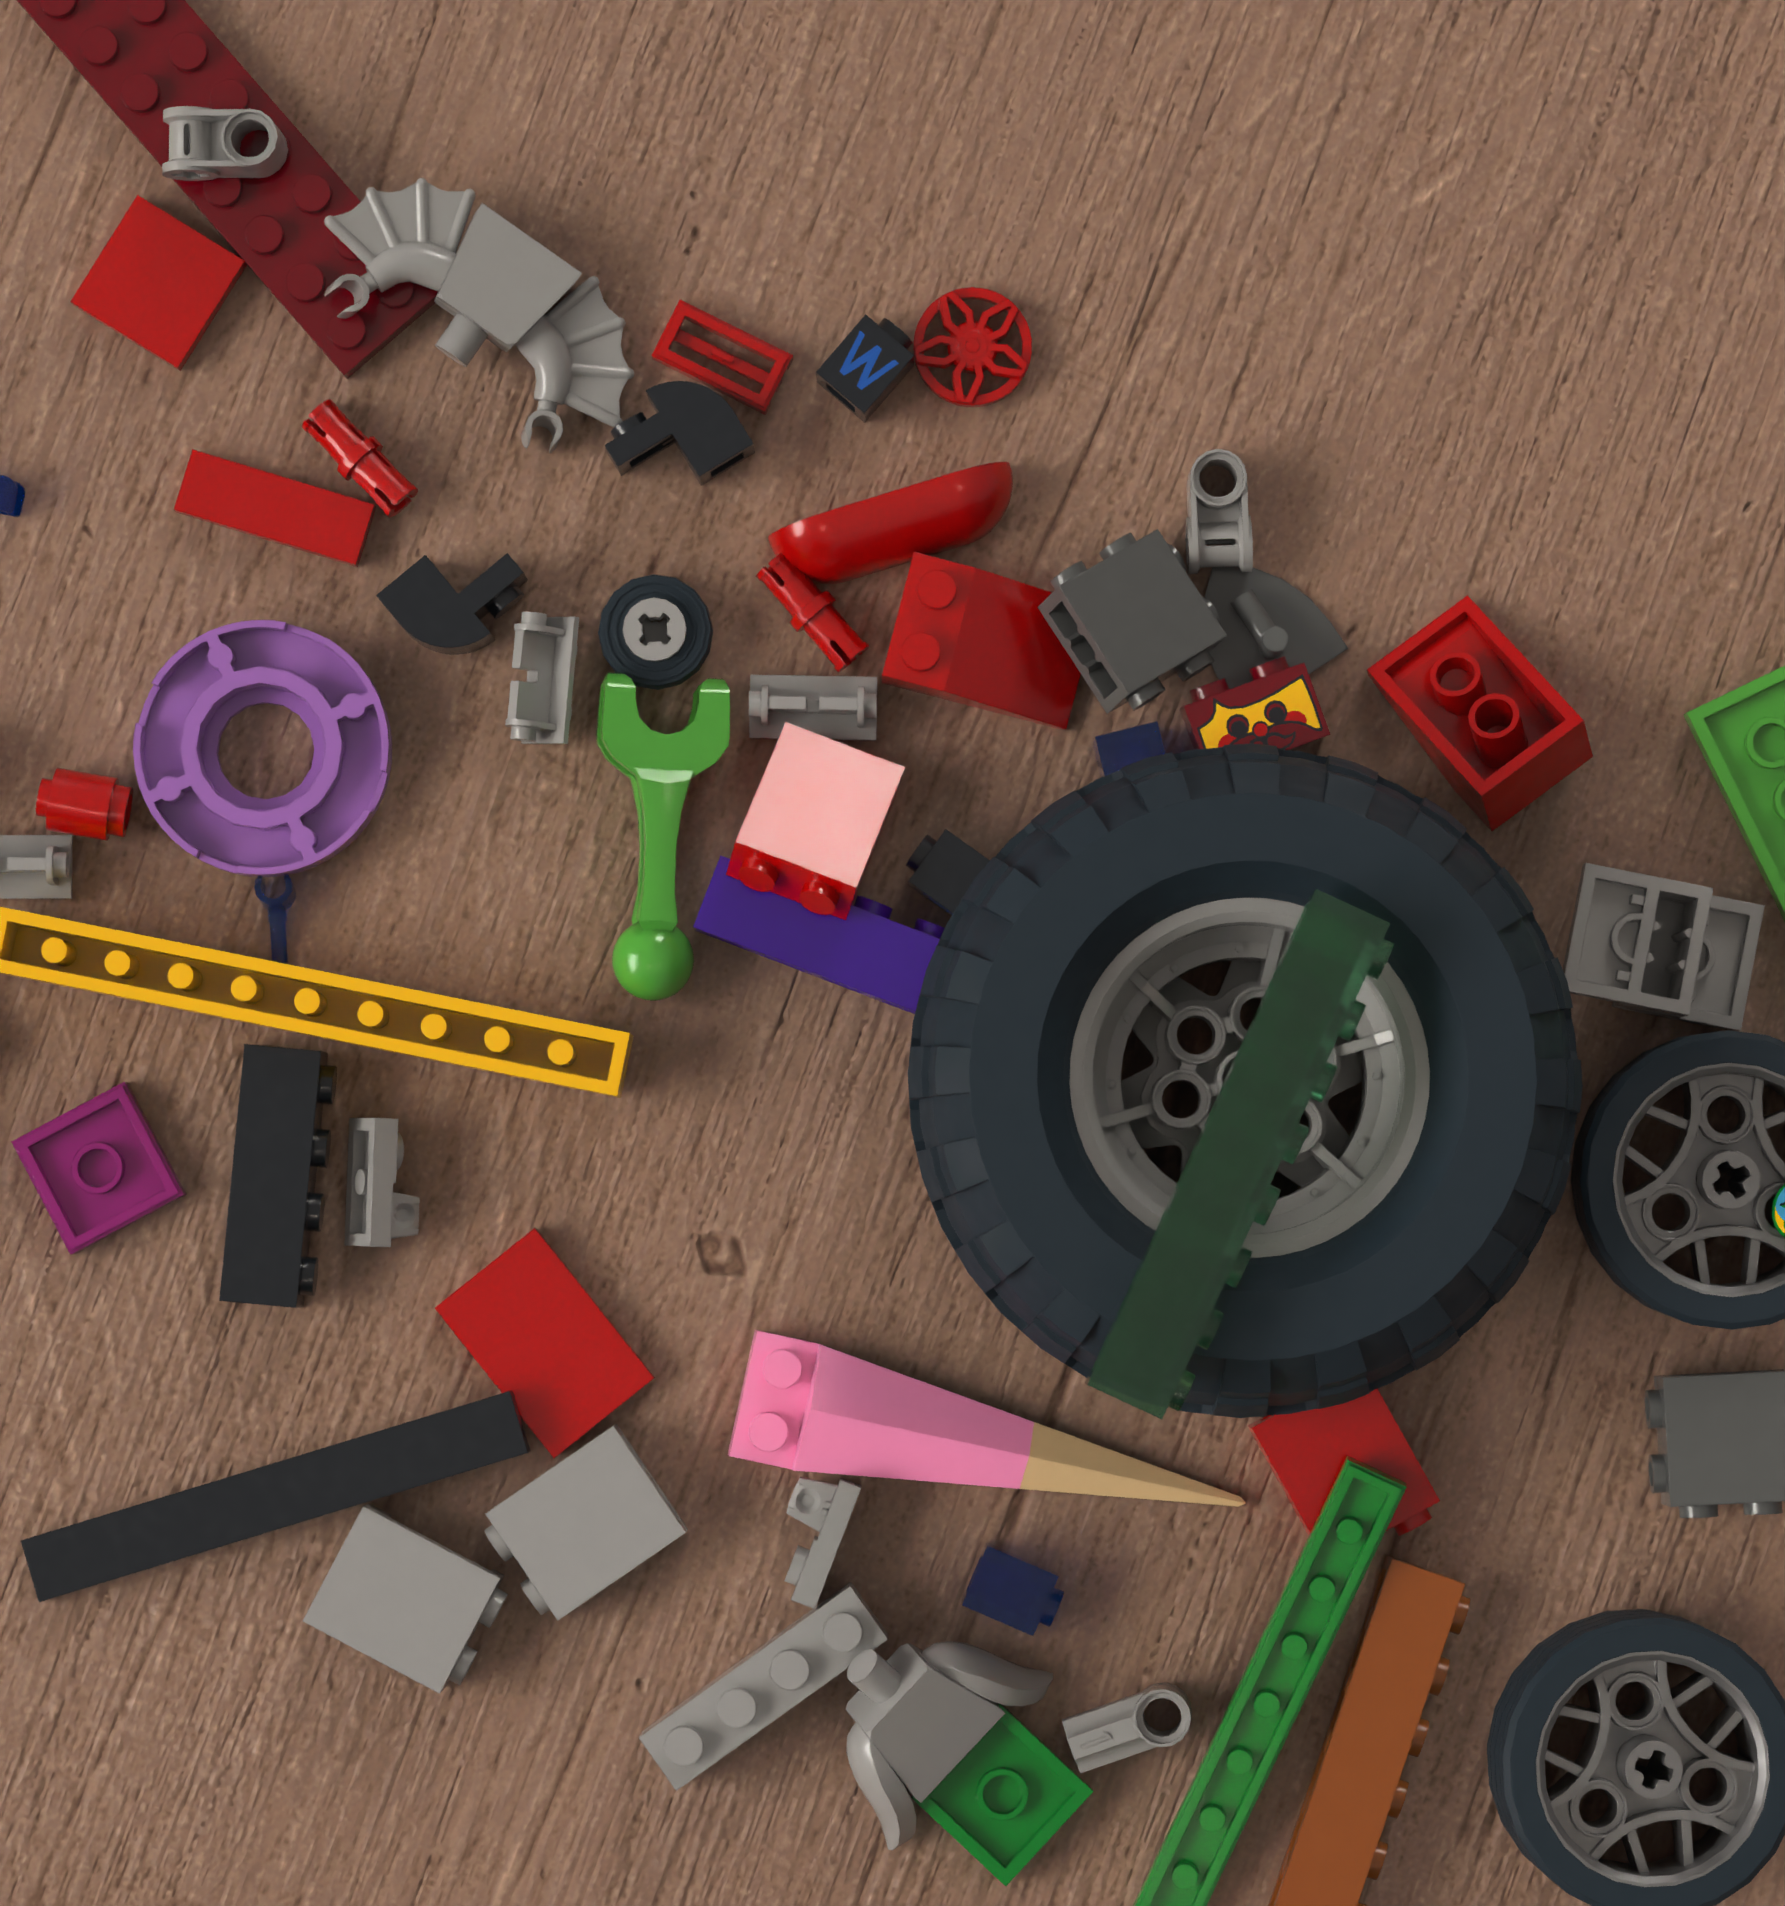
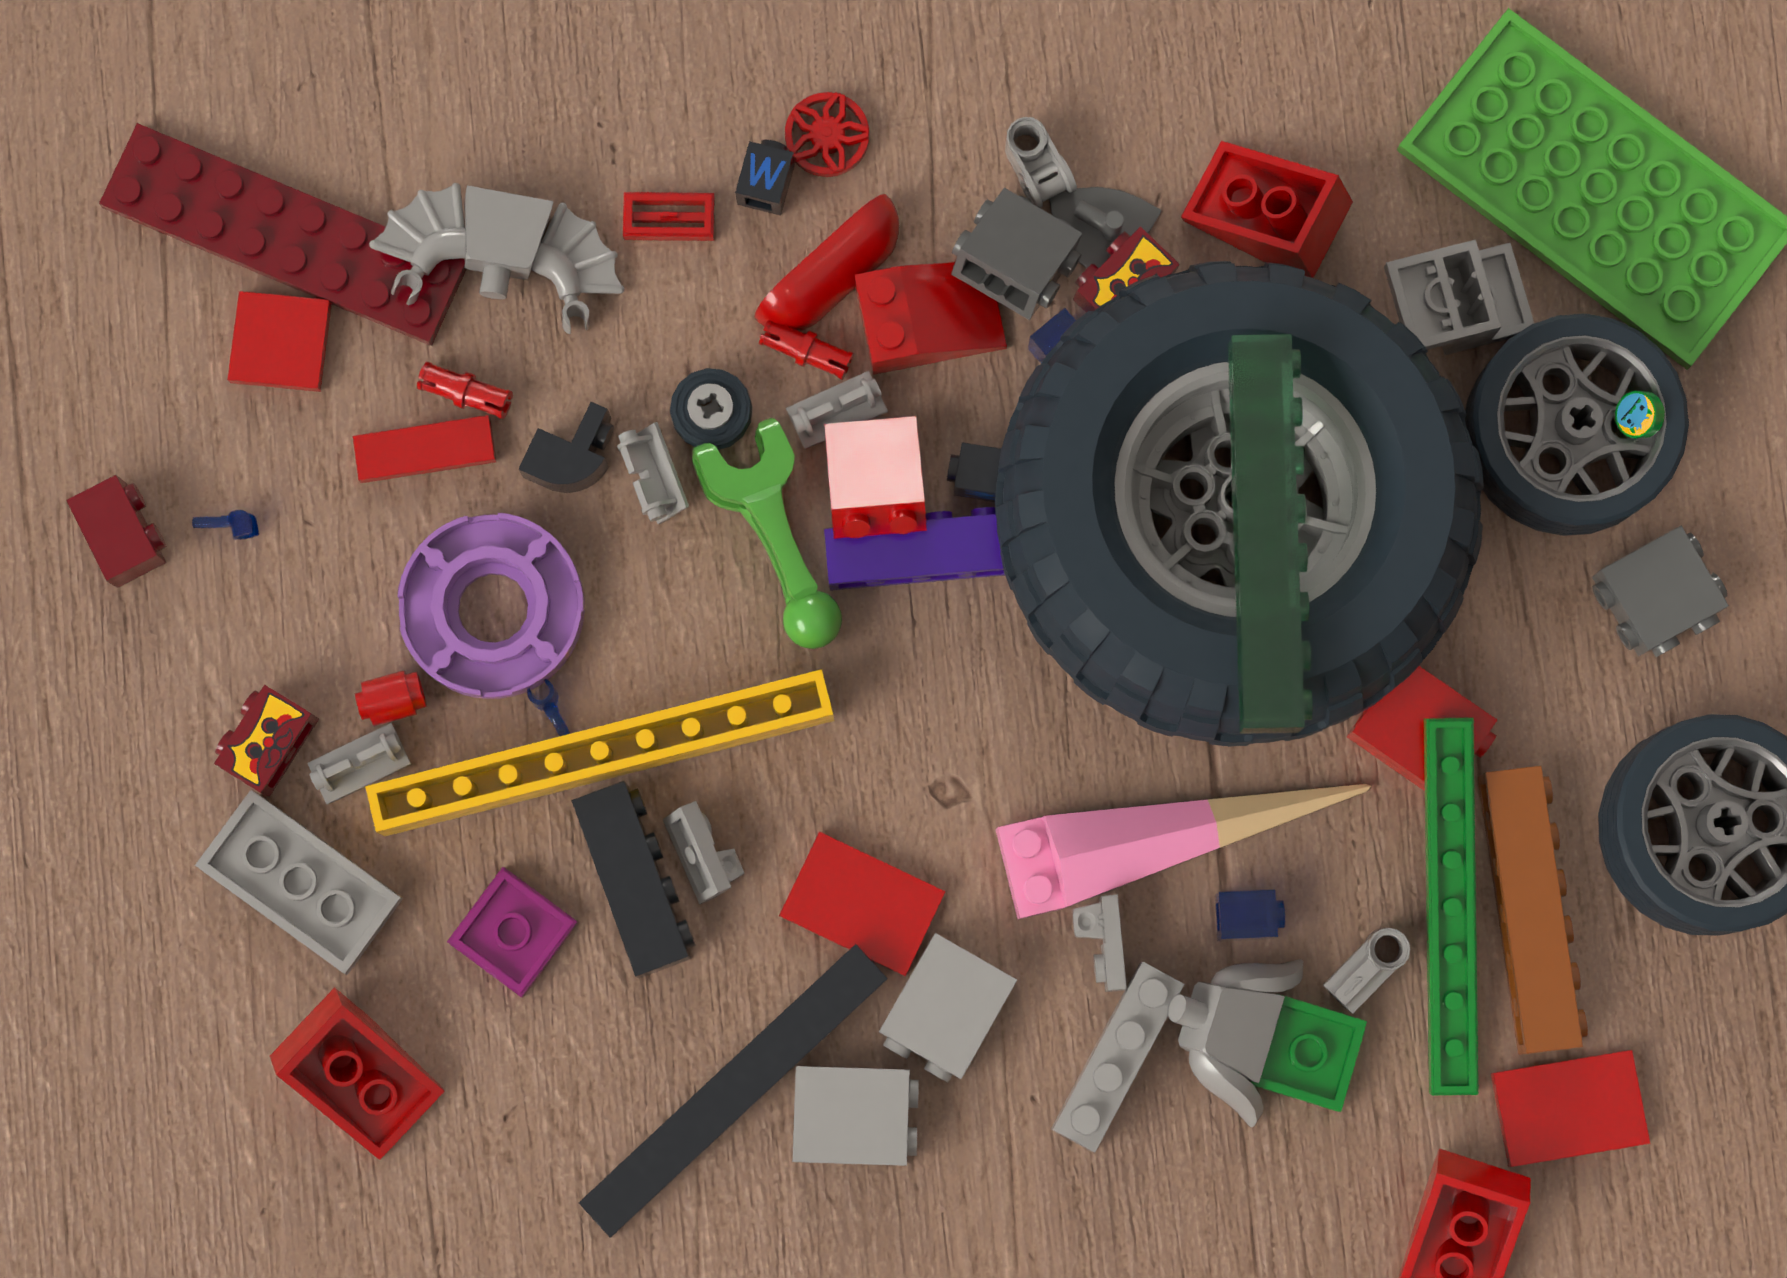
camera: 25 degrees left, 5 degrees down
(208, 142) = (275, 229): light grey piece -> none
(693, 420) = (668, 263): black brick -> none

